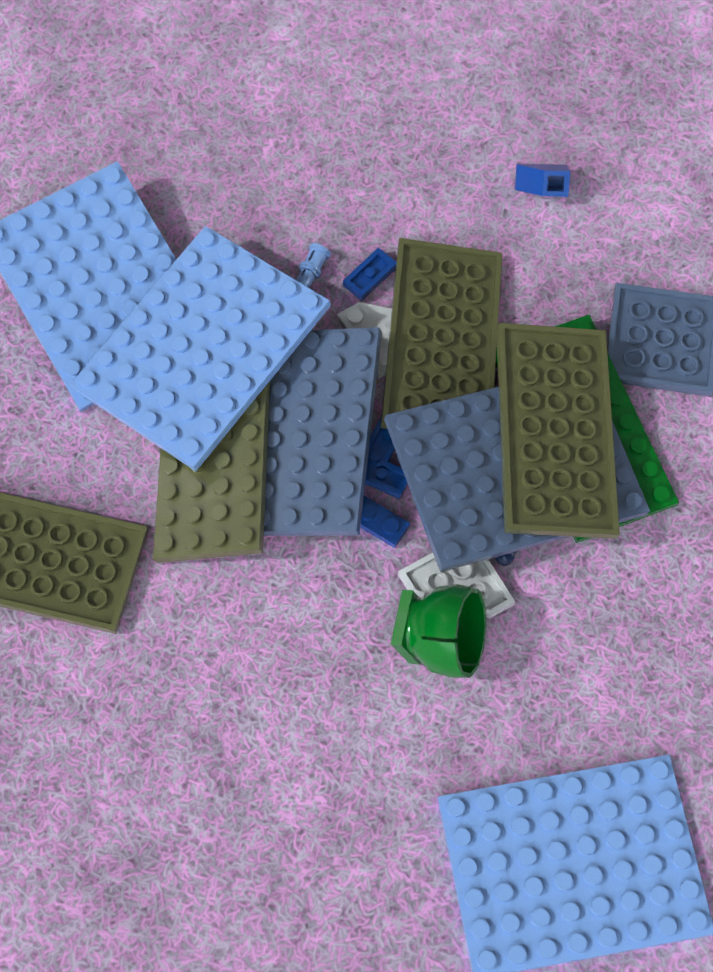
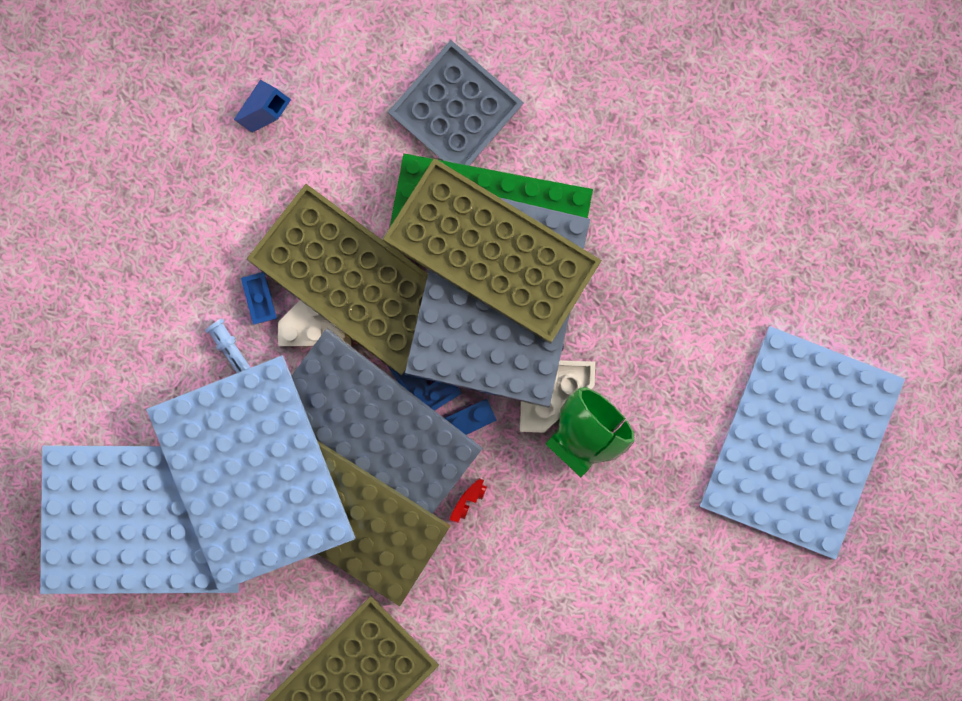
camera: 60 degrees left, 20 degrees up
(310, 563) = (474, 492): none -> red slope

